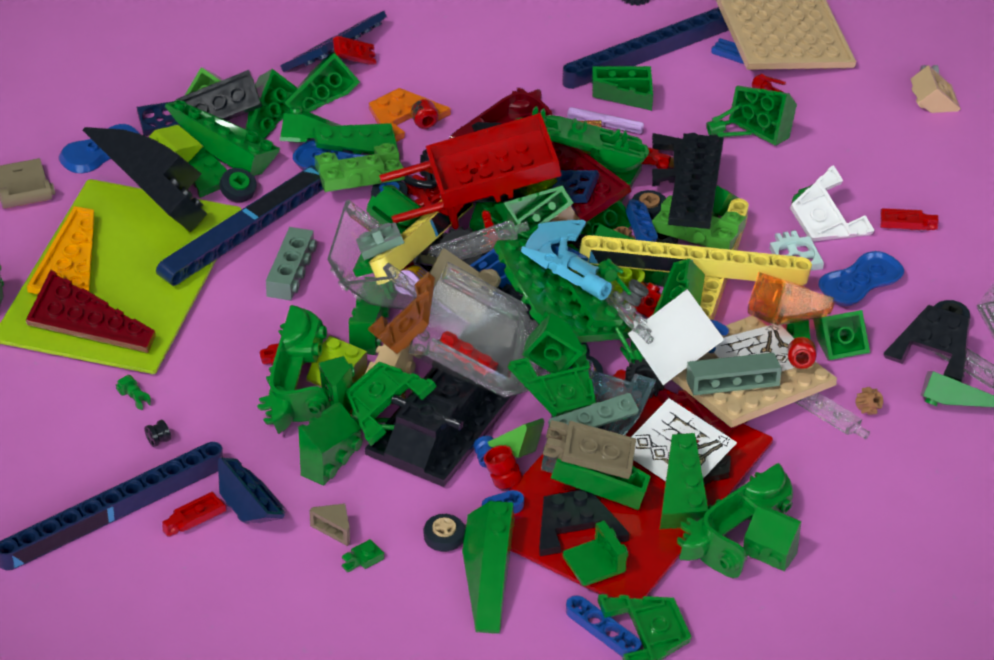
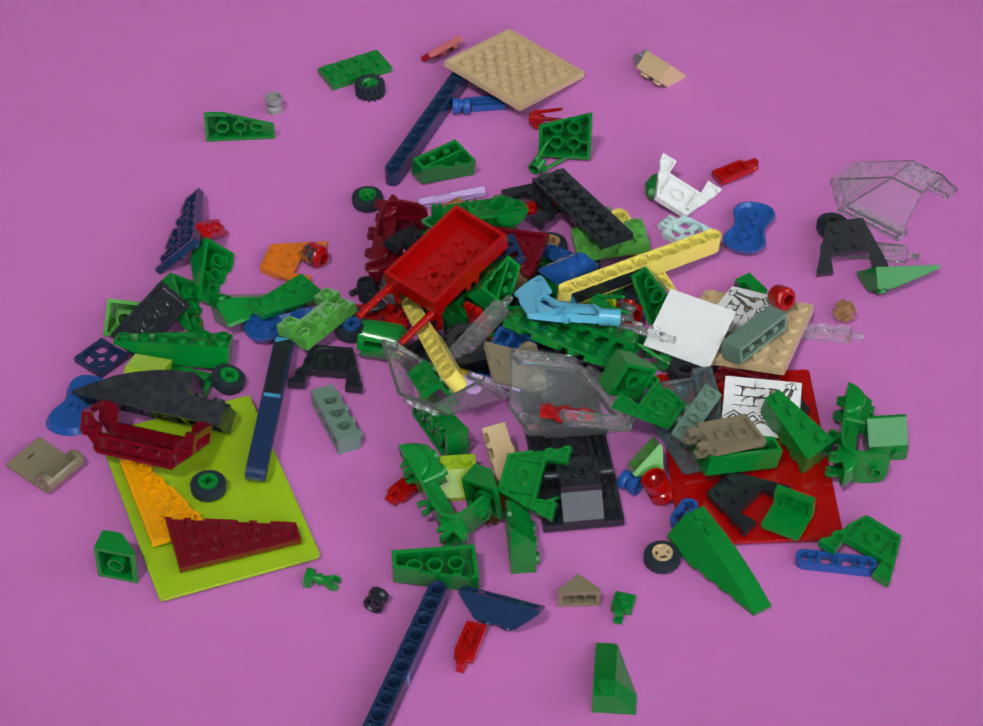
camera: 35 degrees left, 0 degrees up
(119, 210) = (140, 443): none -> dark red windscreen
(122, 264) = (208, 485): none -> black wheel
(237, 432) = (449, 564): none -> green wedge
(278, 614) = (611, 682): none -> green wedge
(326, 210) = (329, 362): none -> black wing
(379, 240) = (427, 360): sand green hinge -> none
(410, 321) = (510, 412): dark orange wing -> none
(526, 81) = (364, 198): none -> black wheel
(617, 226) = (567, 268): none -> blue slope
(702, 42) = (461, 105): none -> blue wheel
(786, 302) = (722, 271): clear orange windscreen -> none
(842, 335) = (778, 269): green slope -> none

